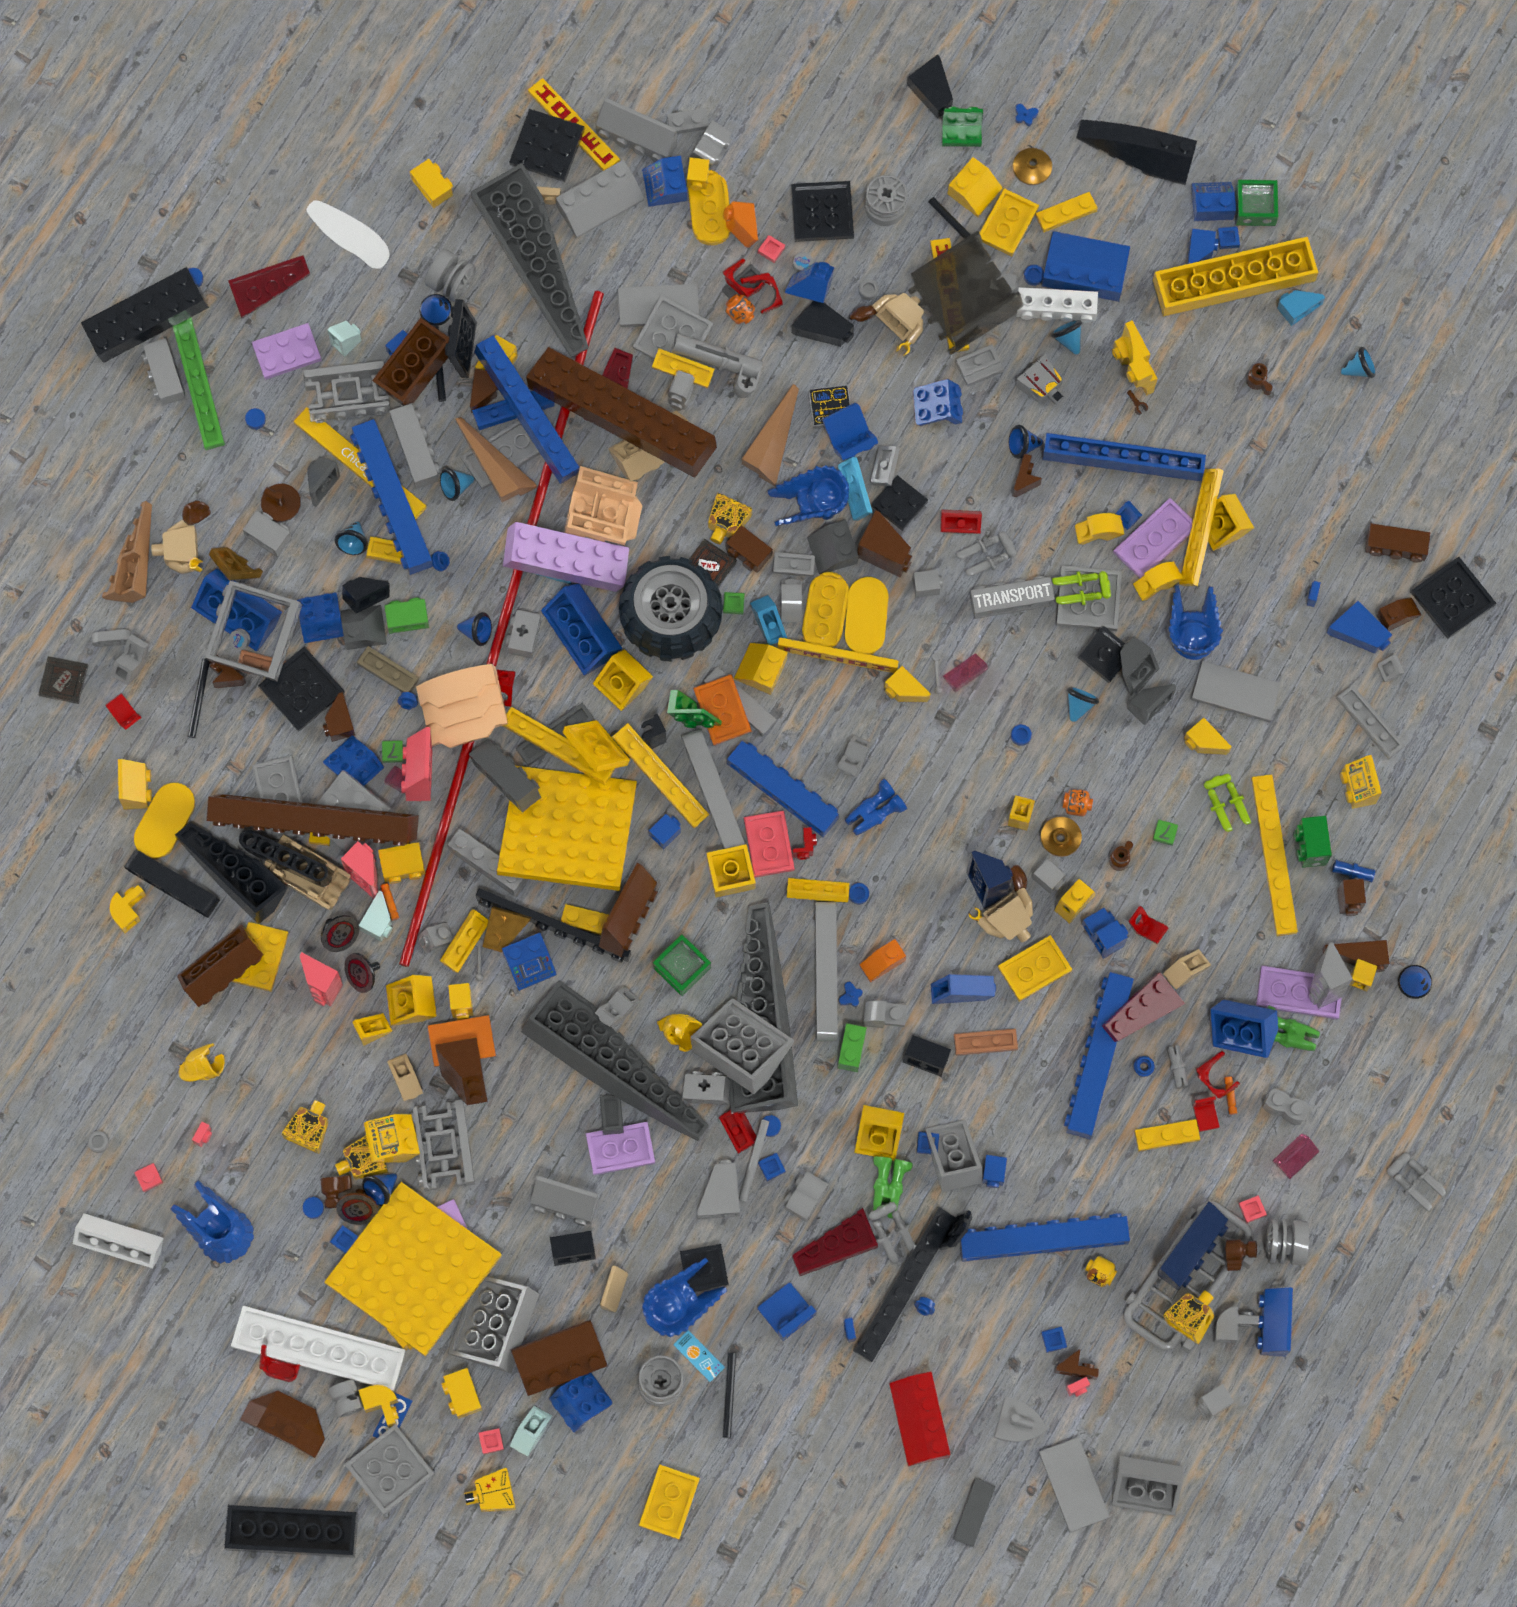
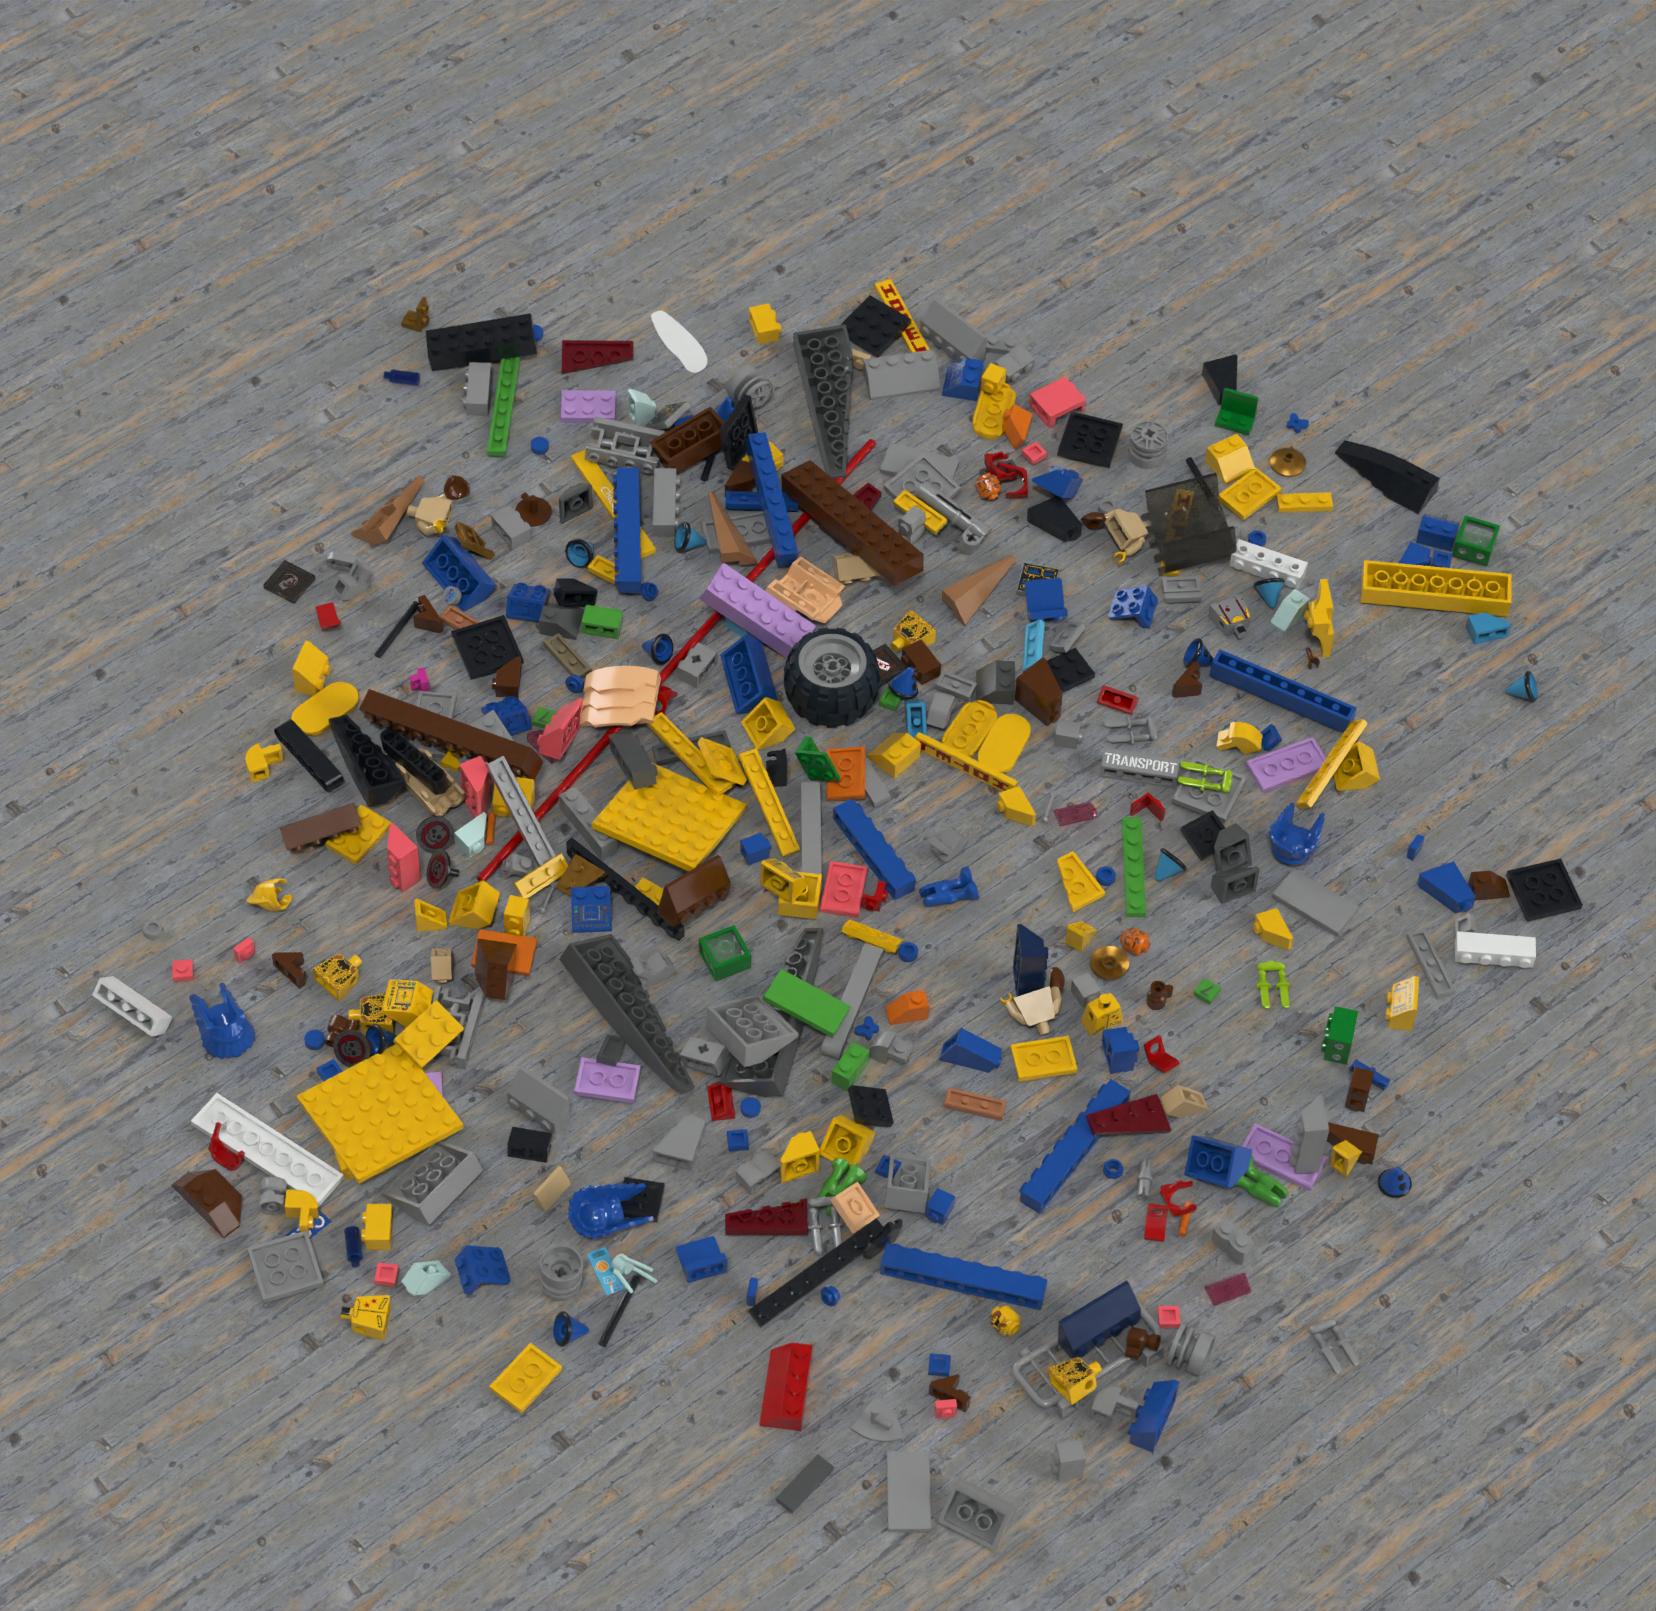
camera: 20 degrees right, 20 degrees down
(61, 305) = (419, 319): none -> pearl gold bracket
(77, 383) = (402, 377): none -> clear blue cylinder
(249, 754) = (419, 681): none -> dark pink tile
(251, 1135) = (289, 965): none -> reddish brown slope
(284, 640) = (485, 601): light grey window -> none
(291, 1531) = (174, 1284): black brick -> none
(376, 339) = (668, 416): none -> tile
(419, 882) = (520, 810): none -> light grey plate
(428, 1169) = (428, 1034): none -> yellow plate
(446, 1422) = (353, 1245): none -> clear blue cylinder
(559, 1357) = (477, 1222): reddish brown slope -> none
(679, 1029) = (699, 1000): yellow helmet -> none
(689, 1437) = (567, 1329): none -> blue hat
(712, 869) = (781, 880): none -> yellow slope
(716, 1347) = (624, 1265): none -> light aqua plant
(742, 584) = (904, 684): none -> blue hat
(753, 1160) = (723, 1128): light grey bar -> none
(772, 176) = (1056, 400): none -> coral panel
(786, 998) = (806, 1003): none -> bright green tile
(818, 494) = (999, 636): blue piece -> none
(843, 1168) = (800, 1157): none -> yellow slope
(888, 1085) = (870, 1106): none -> black plate
(916, 1205) = (855, 1207): none -> light nougat plate
(926, 1055) = (915, 1095): black hinge -> none
(997, 753) = (1078, 882): none -> yellow wing
(1040, 636) = (1151, 804): none -> red bracket
(1045, 714) = (1133, 867): none -> bright green plate
(1086, 265) = (1307, 543): blue slope -> none
(1098, 355) = (1290, 611): none -> light aqua slope
(1156, 579) = (1278, 790): yellow brick -> none
(1167, 1135) = (1112, 1232): yellow plate -> none
(1258, 377) = (1427, 670): reddish brown piece -> none
(1274, 855) = (1301, 1041): yellow plate -> none
(1397, 542) = (1508, 831): reddish brown brick -> none
(1429, 687) = (1495, 949): none -> white brick

